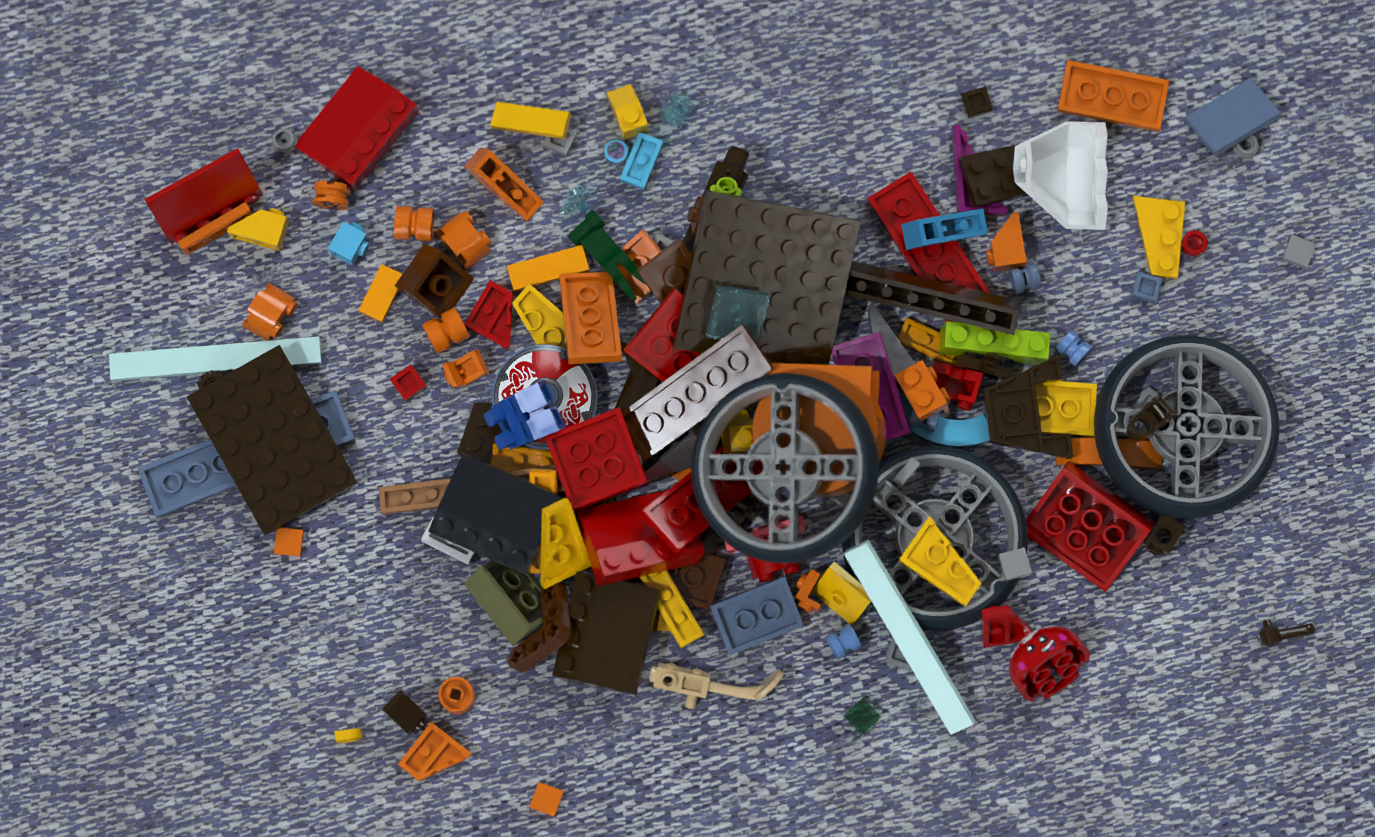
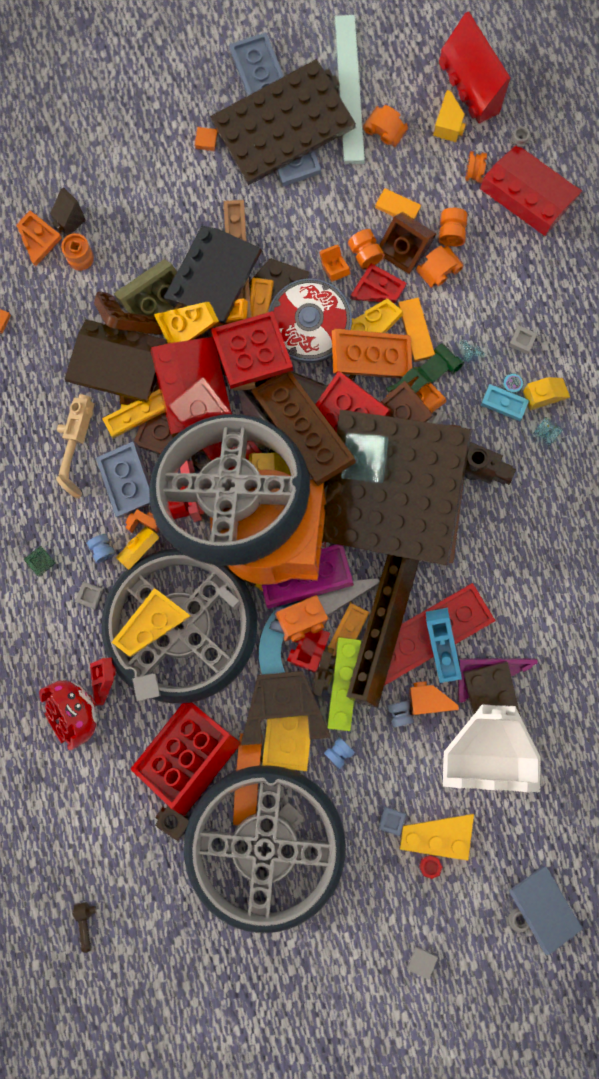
camera: 95 degrees right, 0 degrees up
(213, 229) = (449, 83): orange tile -> none
(348, 735) = (54, 175): yellow tile -> none
(349, 243) = (438, 180): medium azure brick -> none
(408, 382) = (325, 223): red plate -> none
(503, 183) = (485, 295): orange slope -> none
(527, 418) = (291, 300): blue hips -> none
(530, 120) = (538, 316): yellow tile -> none
(727, 186) = (480, 456): lime plate -> none
(909, 637) = (94, 596): light aqua tile -> none
(976, 102) = (557, 681): dark brown tile -> none
(1113, 96) = (564, 801): orange plate -> none
(1153, 415) = (267, 815): dark brown piece -> none

